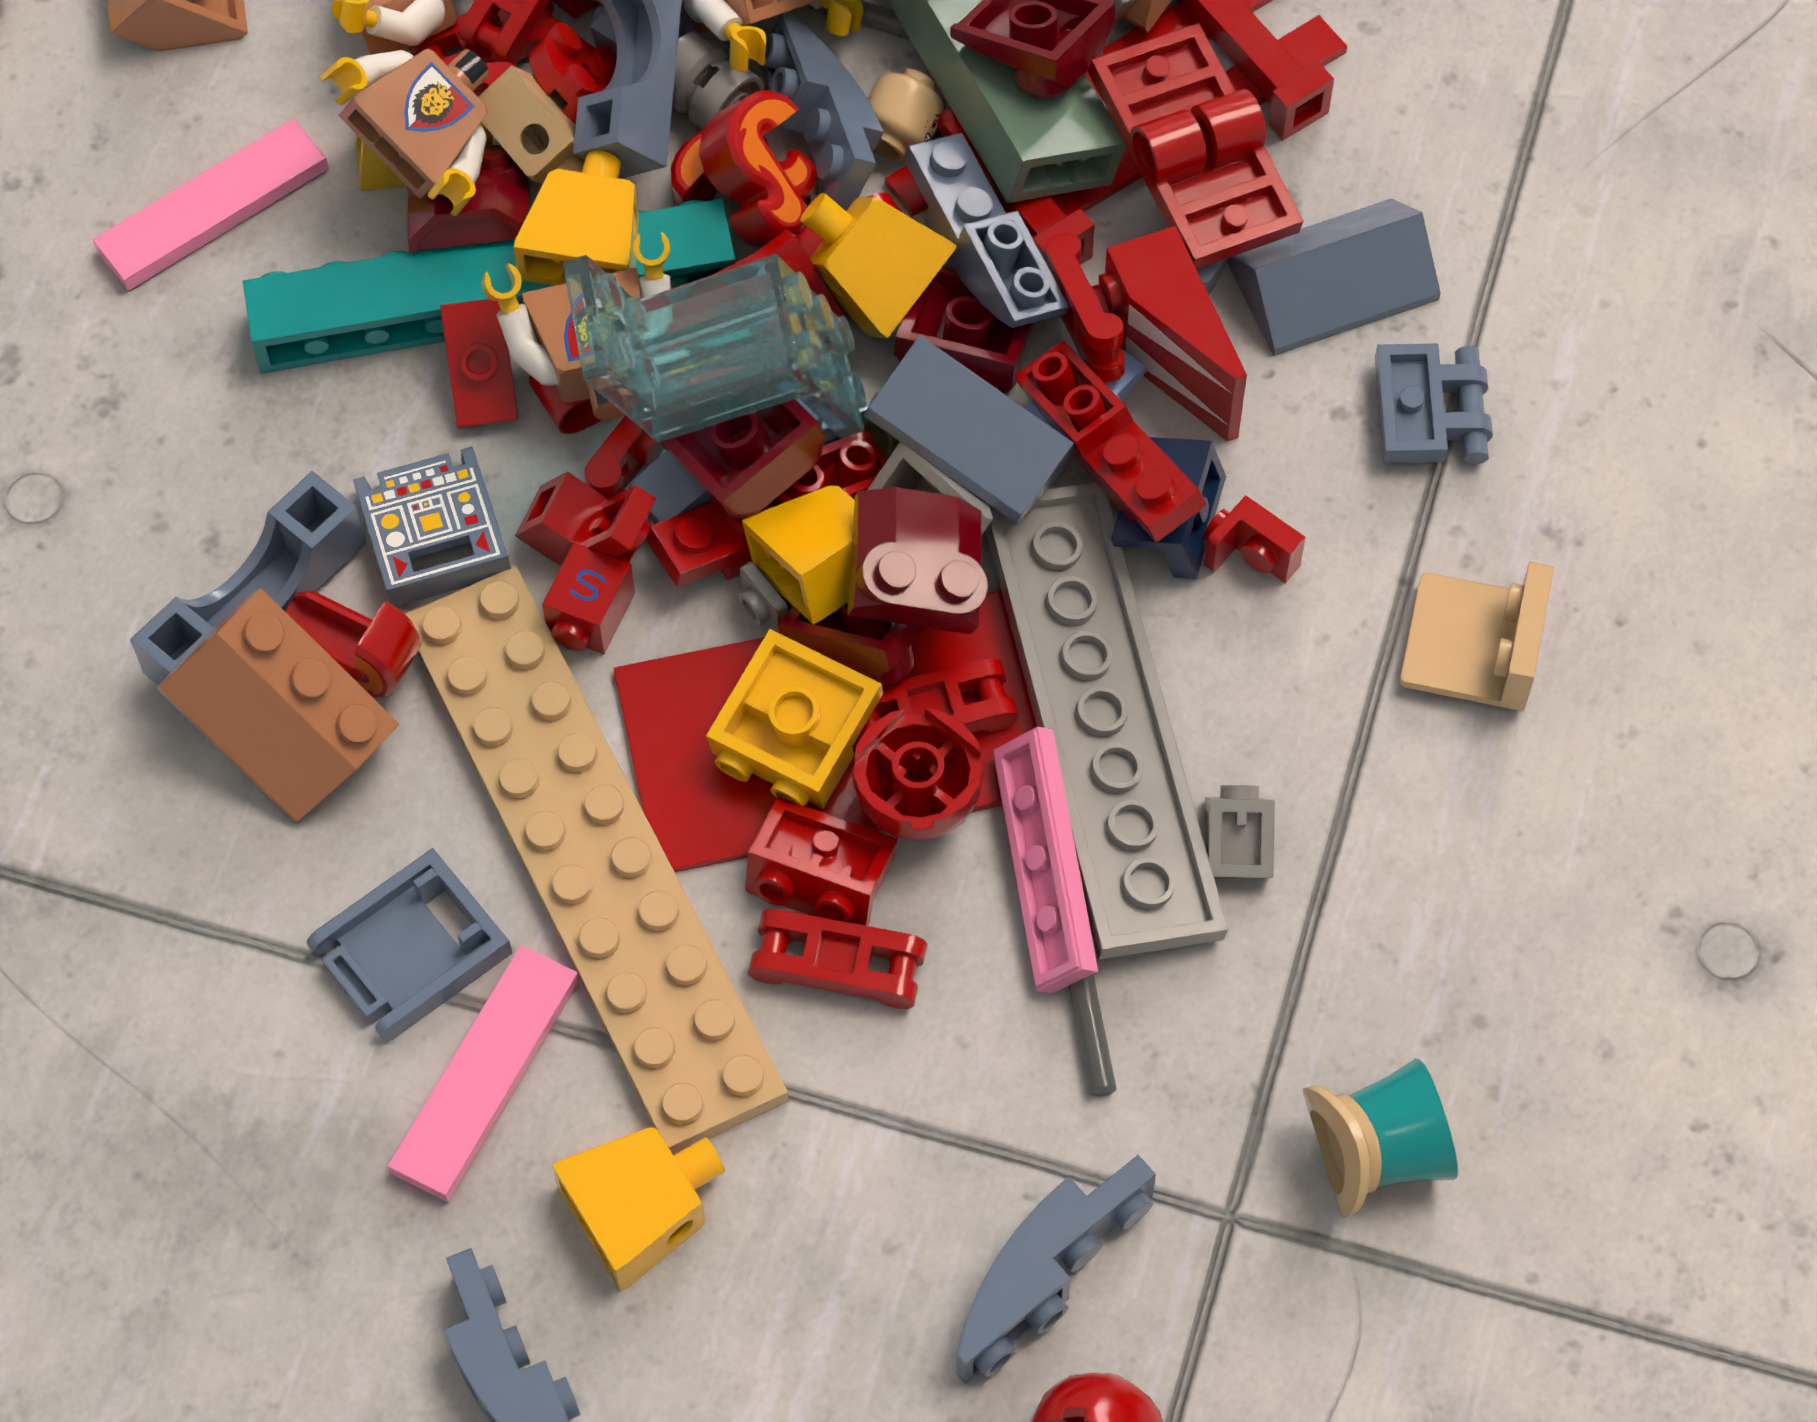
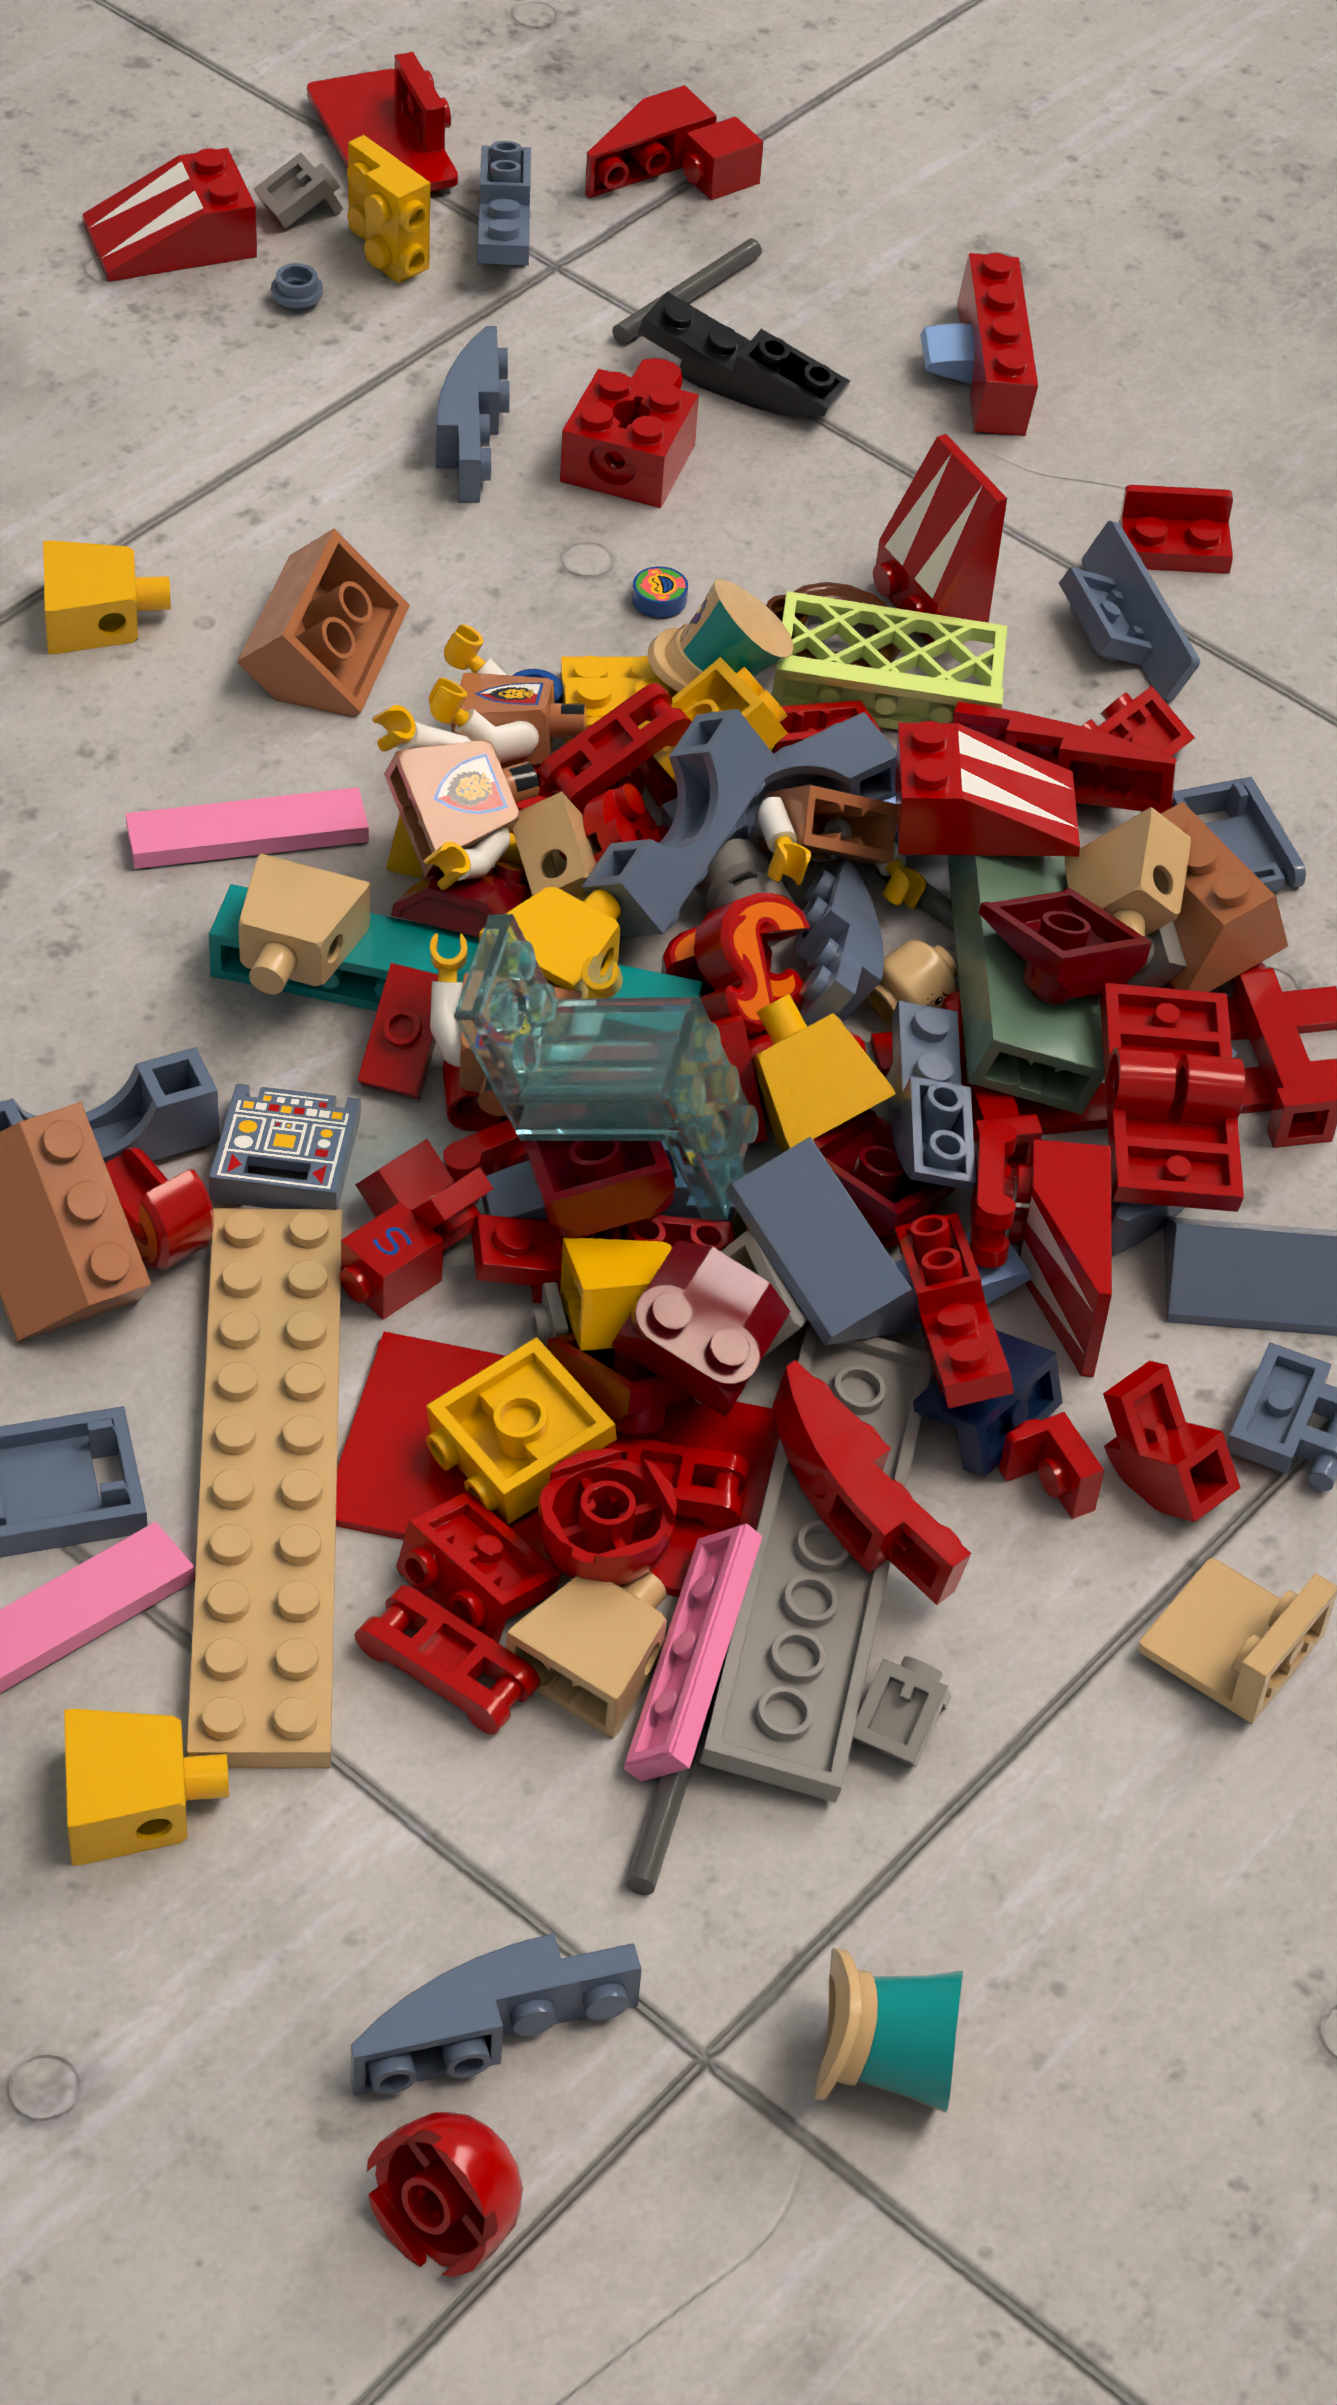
camera: 20 degrees right, 15 degrees down
(336, 302) = (299, 923): none -> tan torso
(958, 892) = (594, 1647): none -> tan torso
(1086, 638) = (843, 1477): none -> red slope
(1340, 494) = (1161, 1456): none -> red brick

